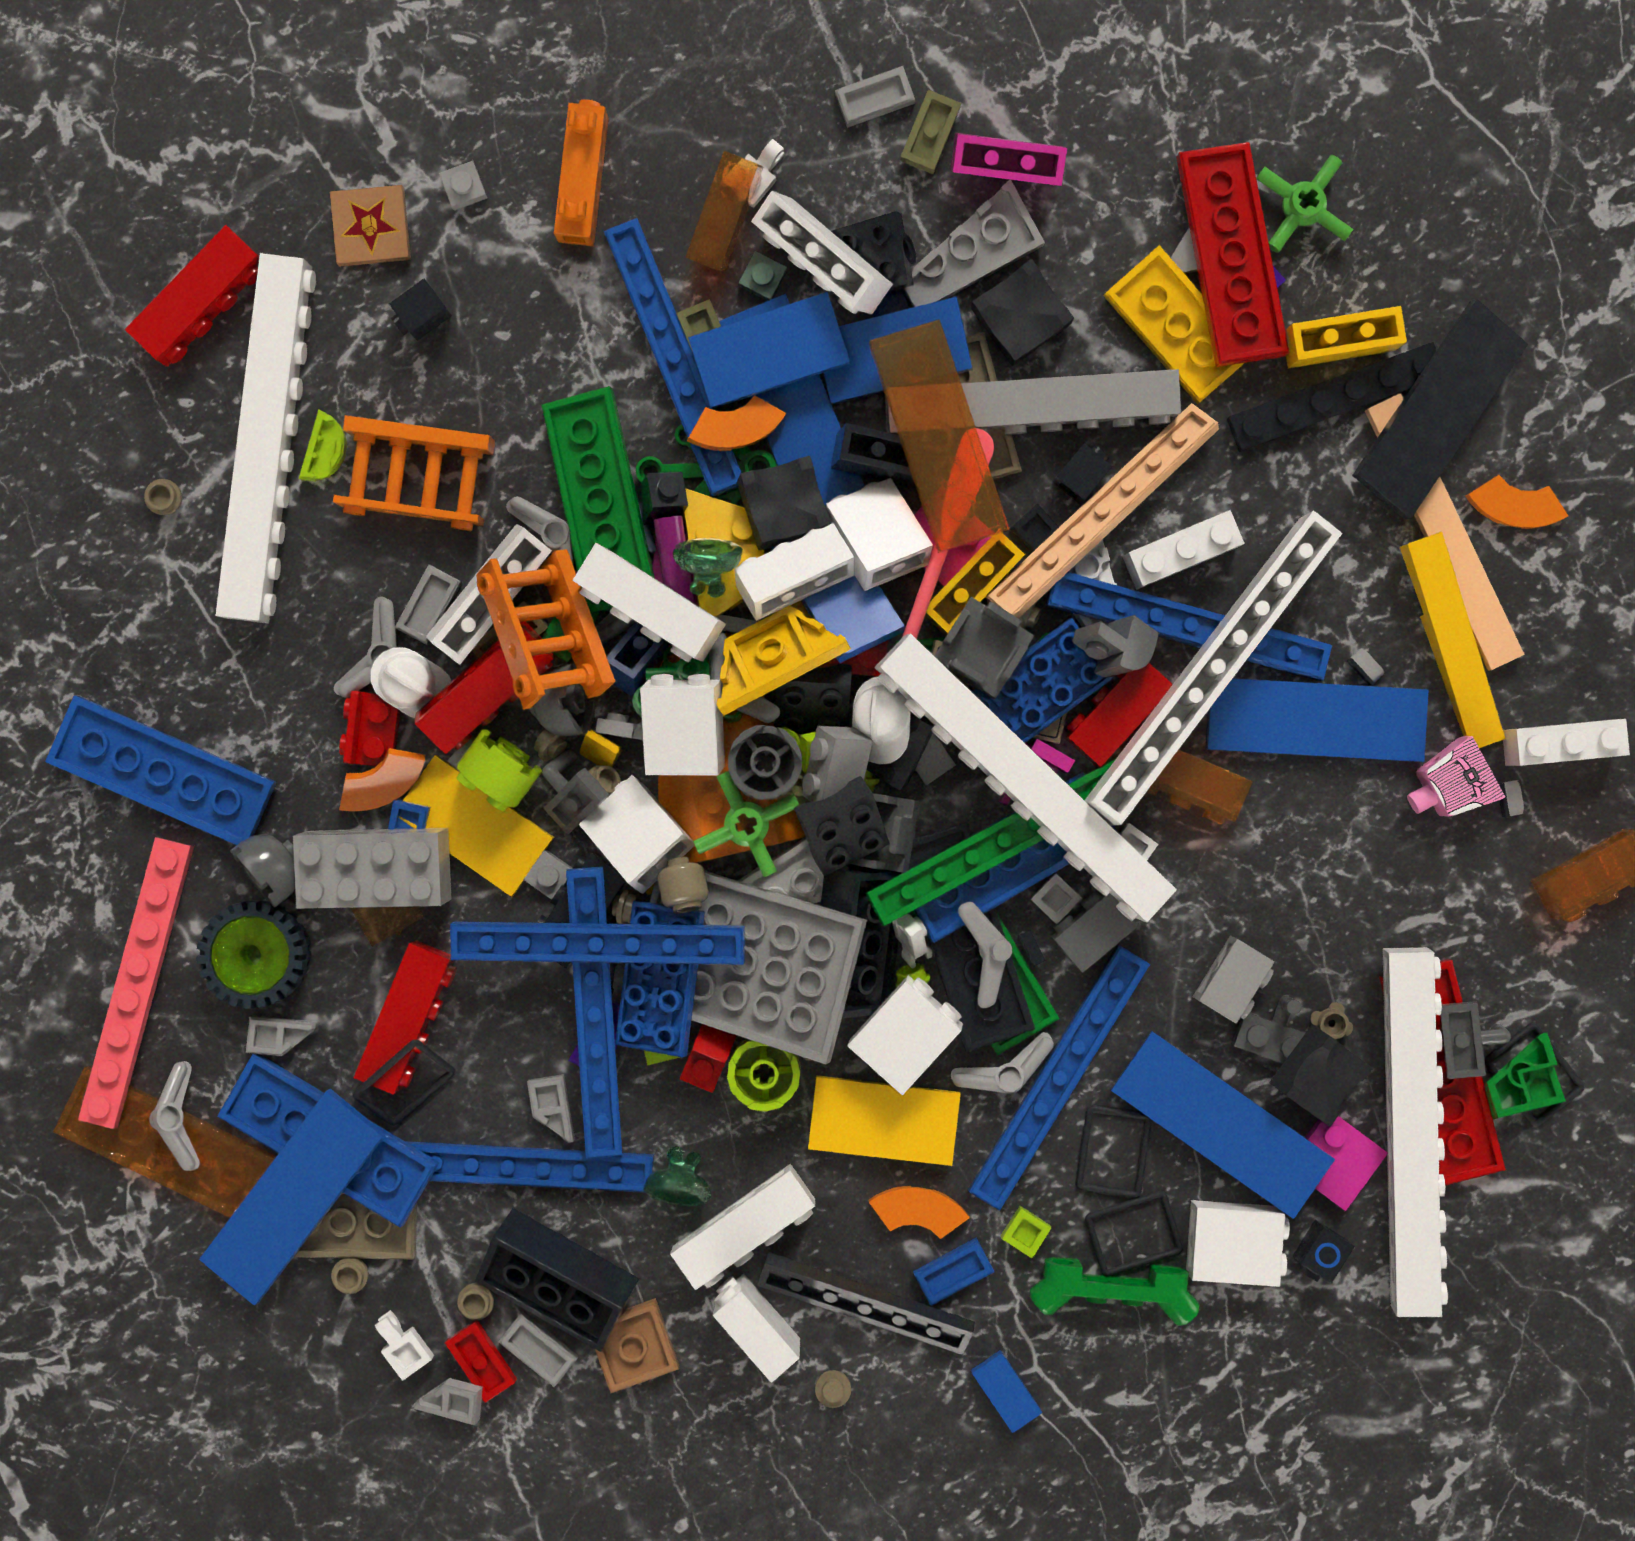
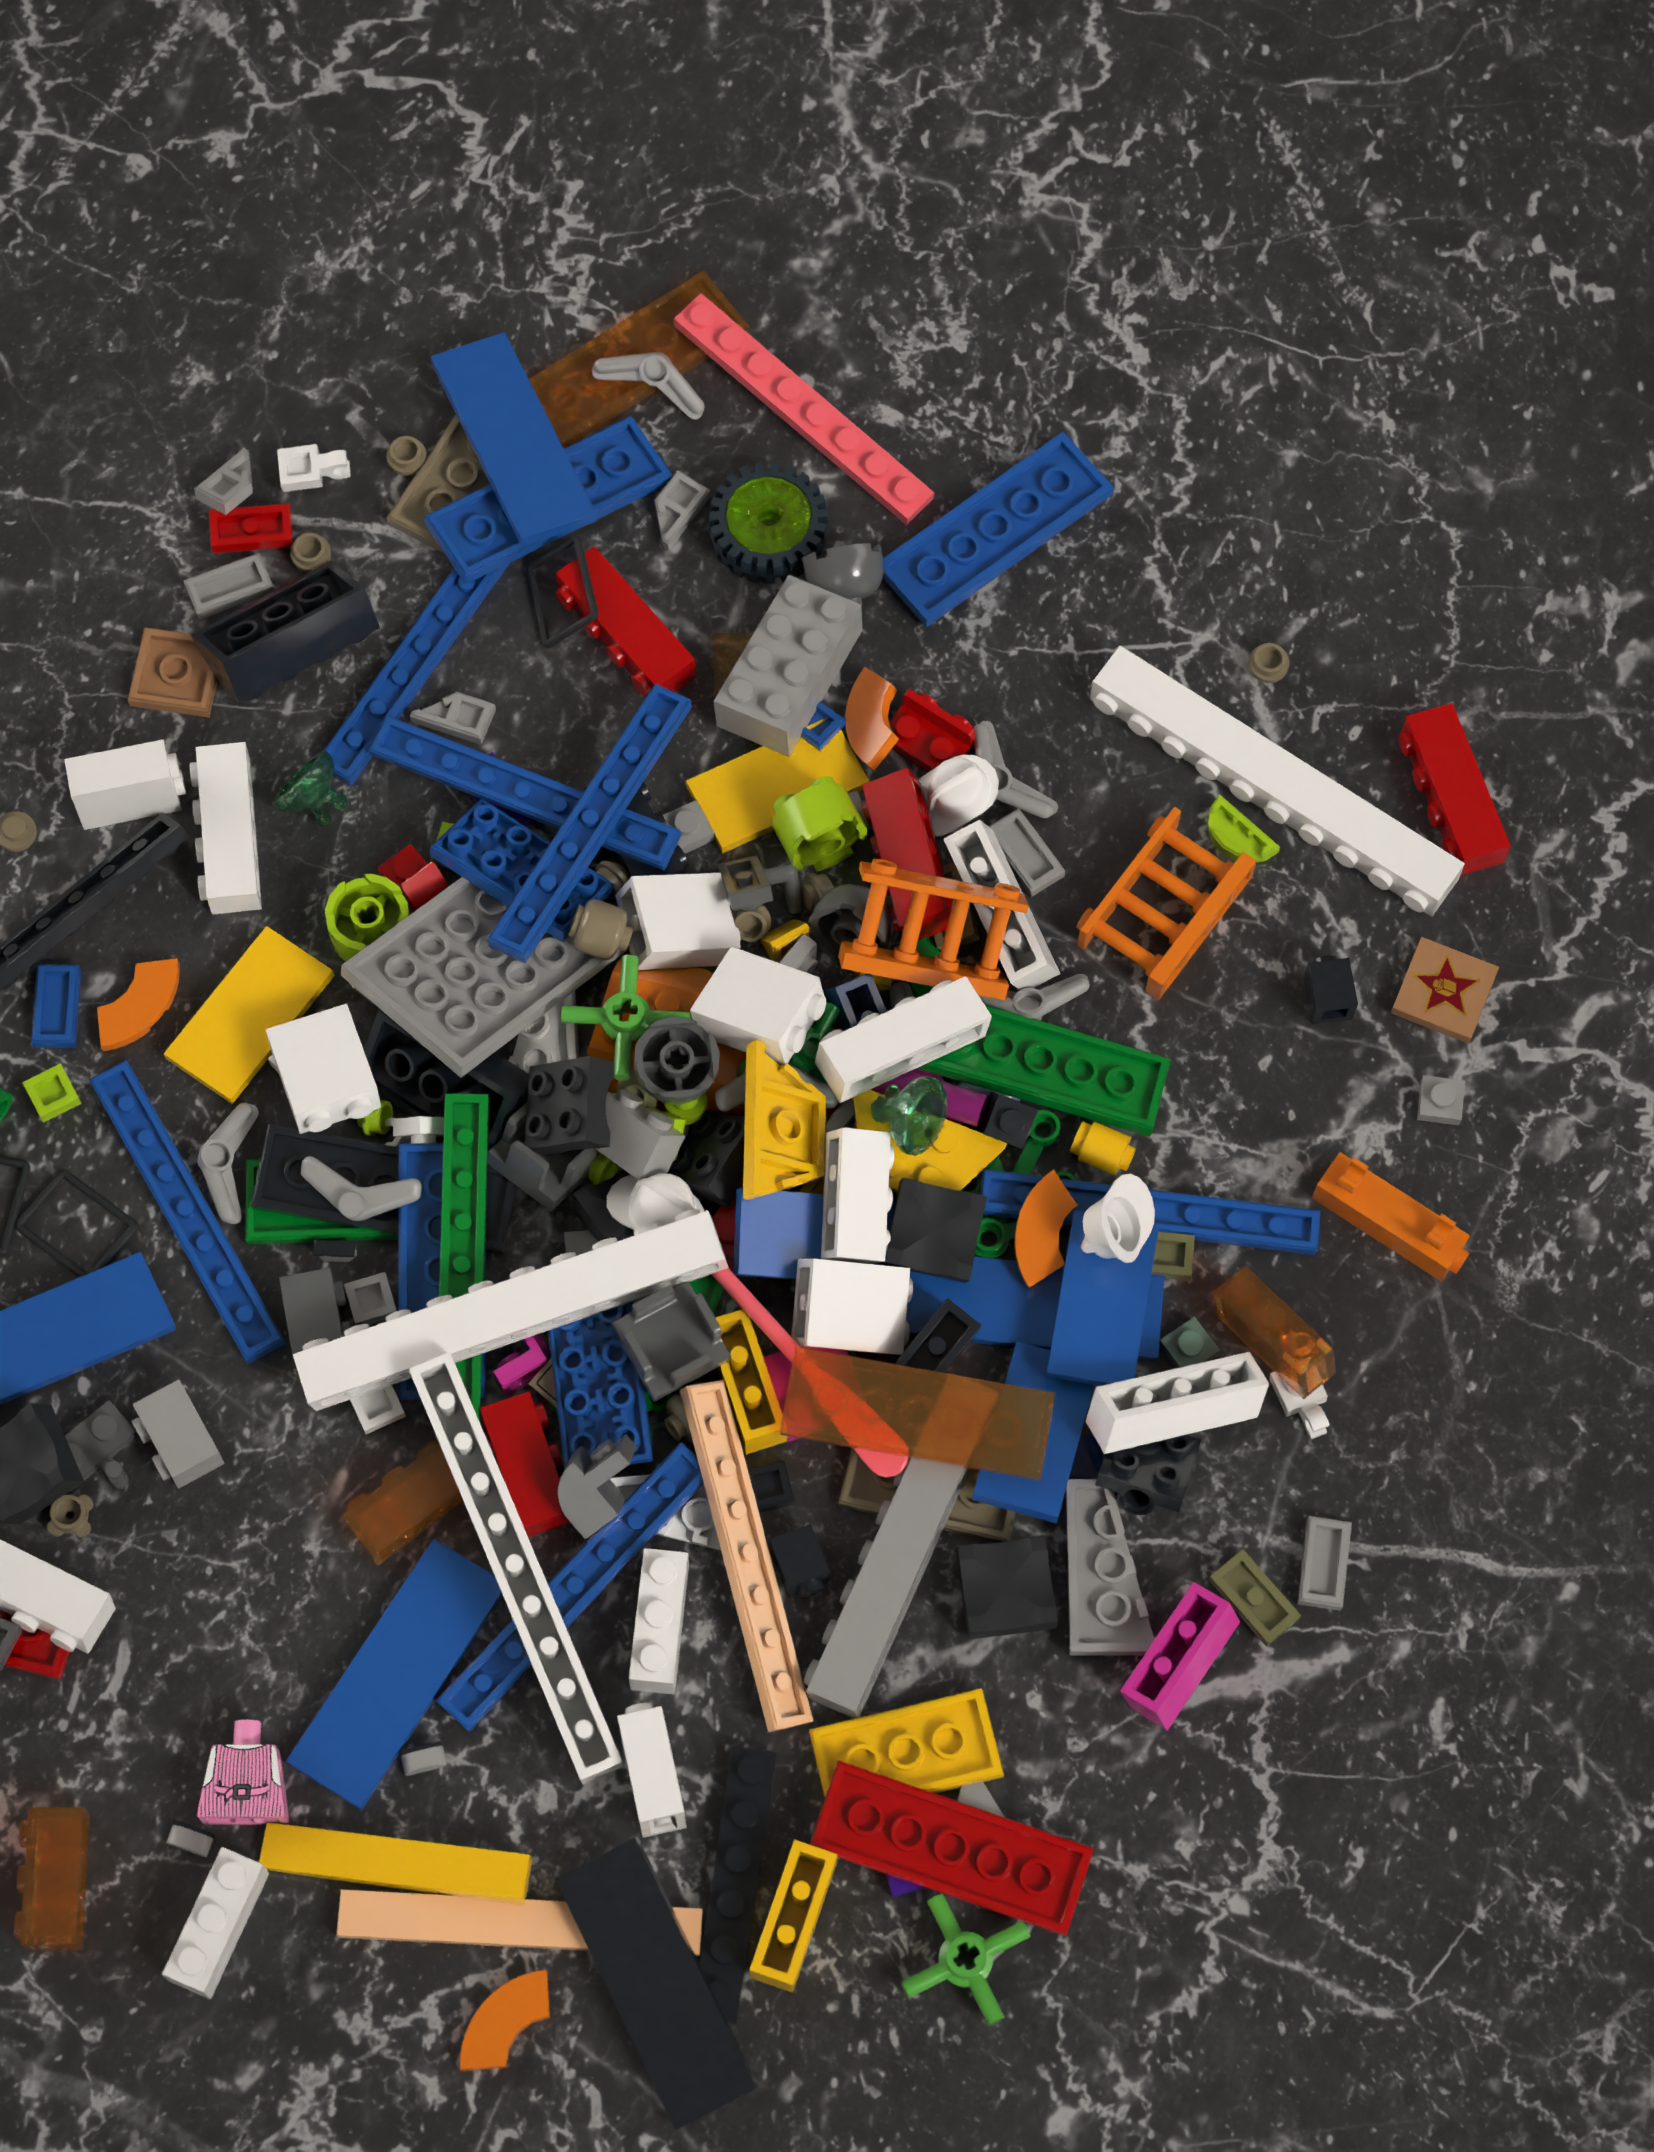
camera: 120 degrees right, 20 degrees down
(642, 417) = (1103, 1147): none -> yellow brick
(709, 362) = (1120, 1220): none -> white piece
(1299, 492) = (651, 1770): none -> white brick

